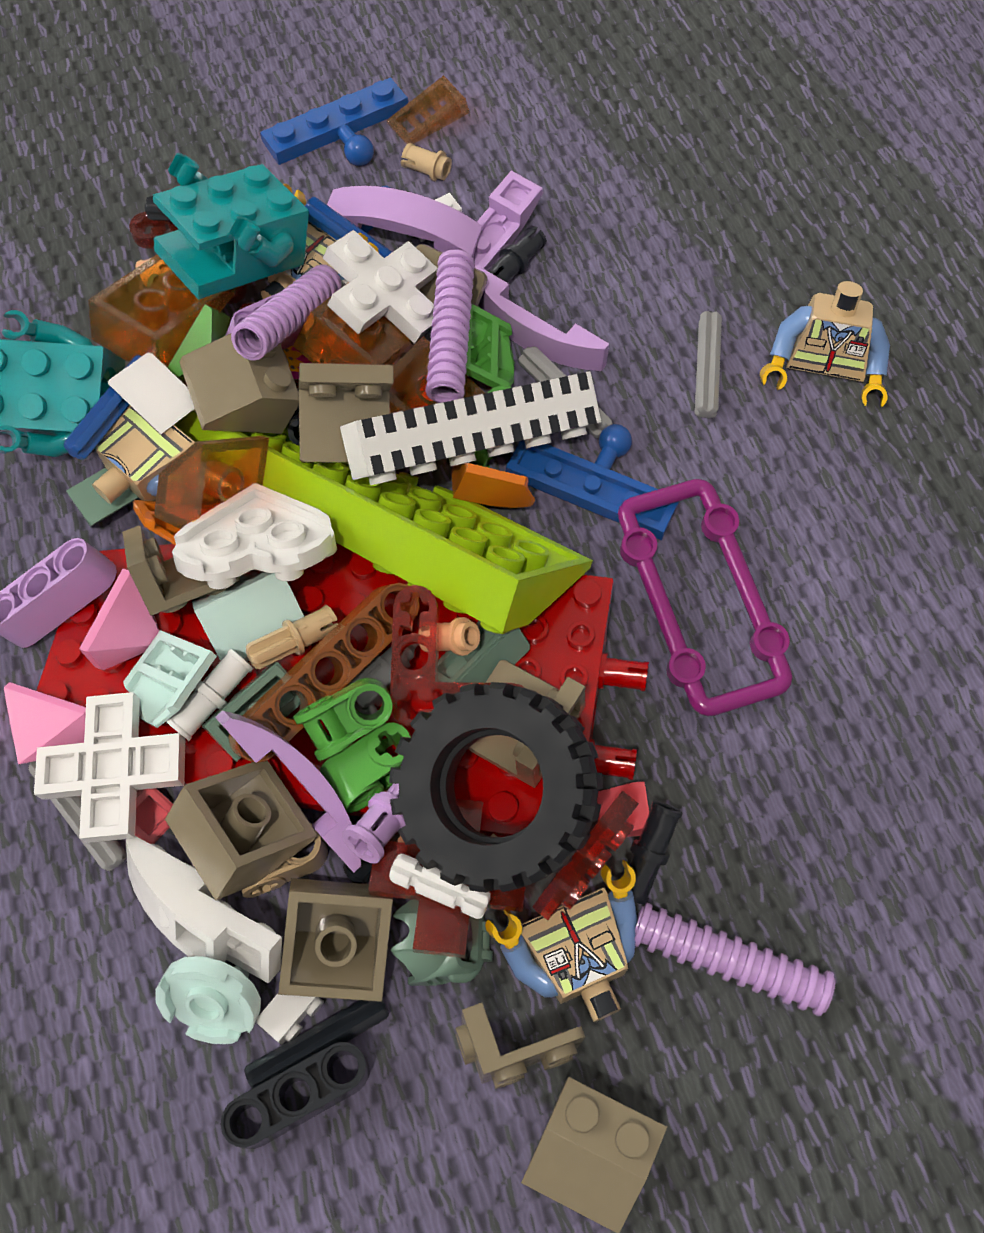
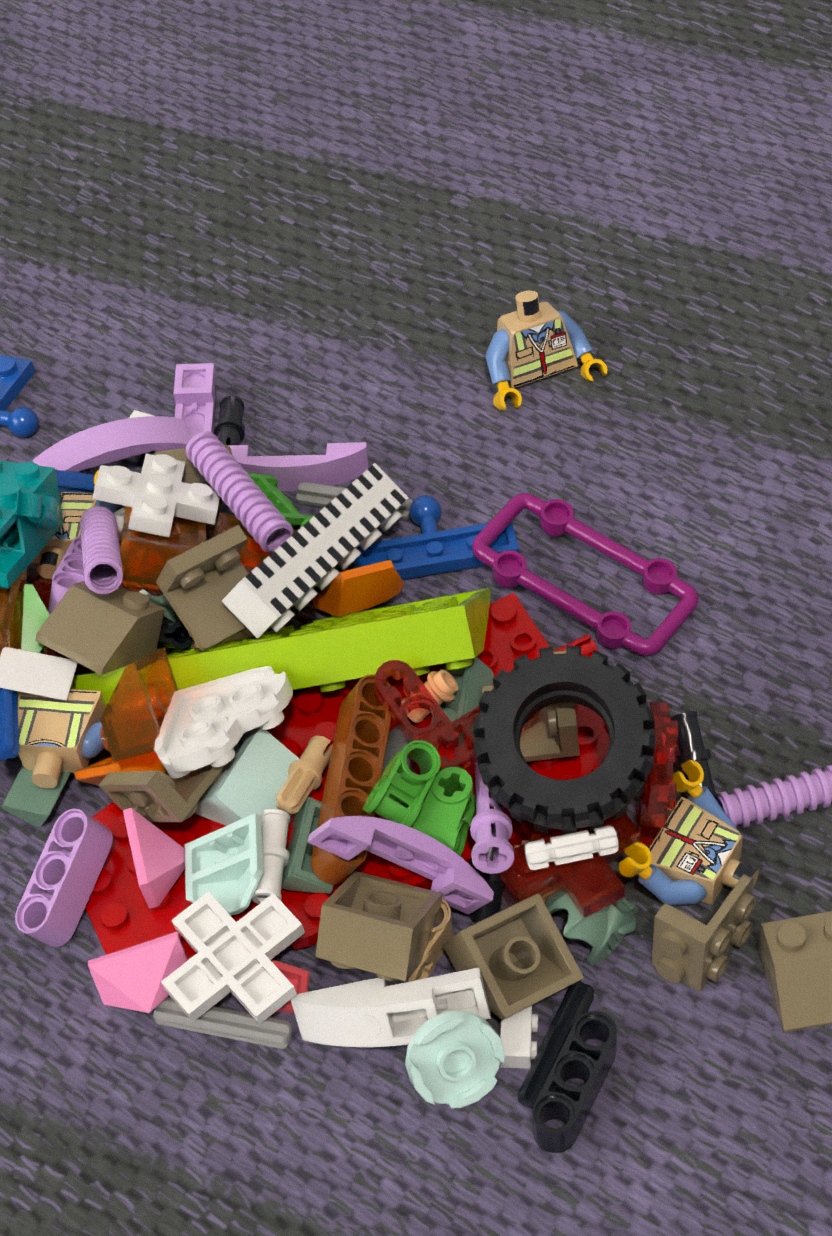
camera: 30 degrees left, 15 degrees down
(430, 97) = (58, 339): clear orange slope -> none
(430, 163) = (90, 400): tan pin -> none
(708, 365) = (450, 420): light grey axle -> none

